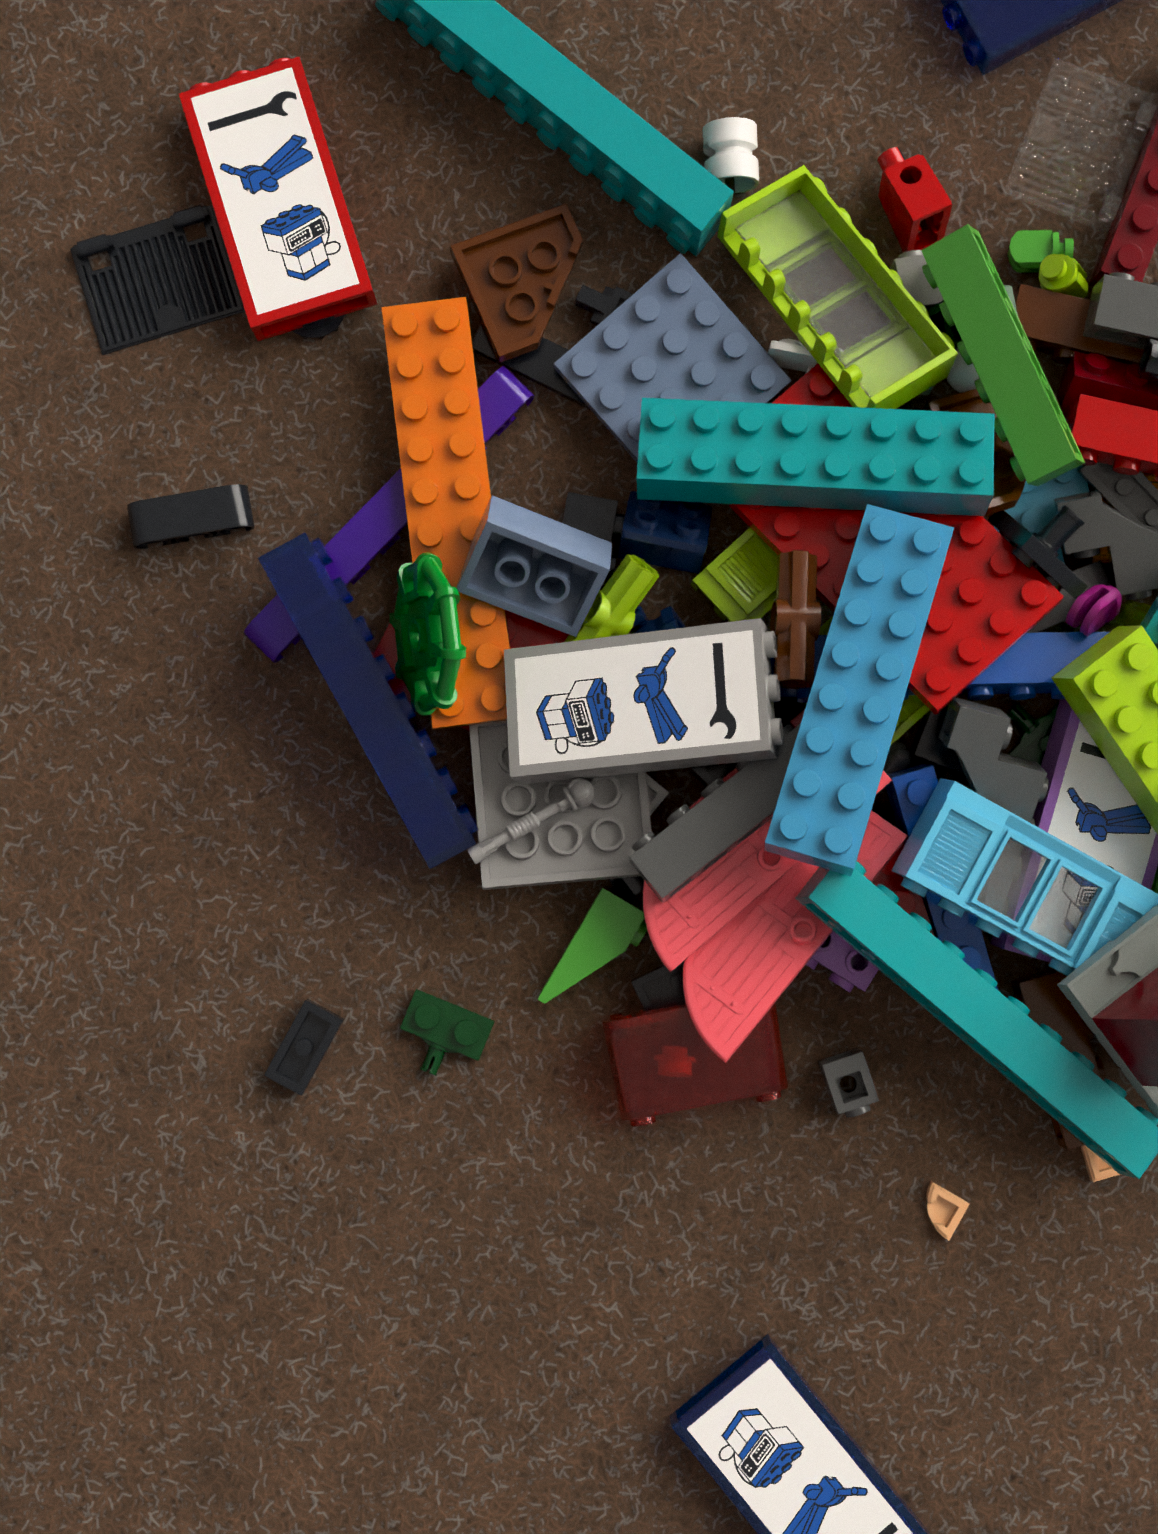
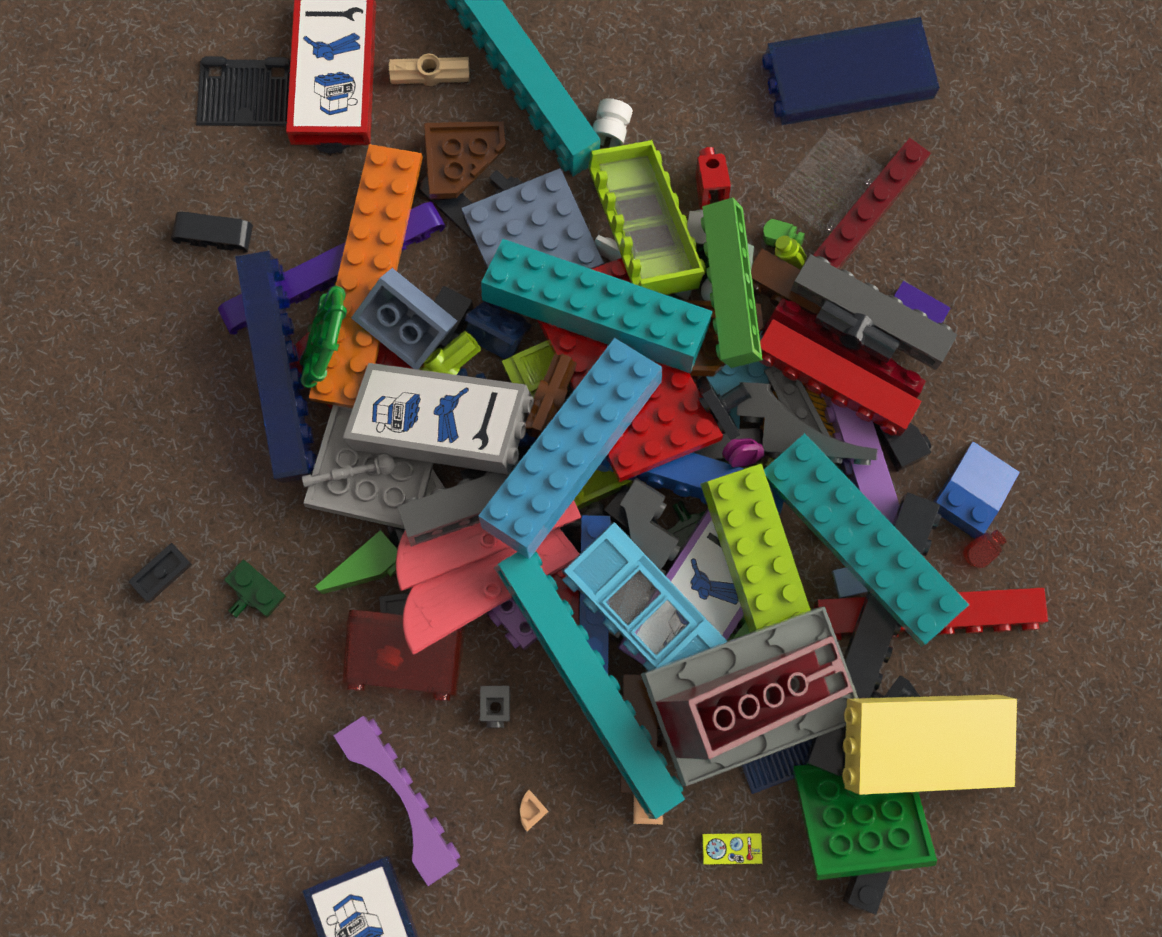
camera: 20 degrees right, 10 degrees down
(453, 147) = (446, 70): none -> tan piece
(685, 1201) = (430, 852): none -> medium lavender arch

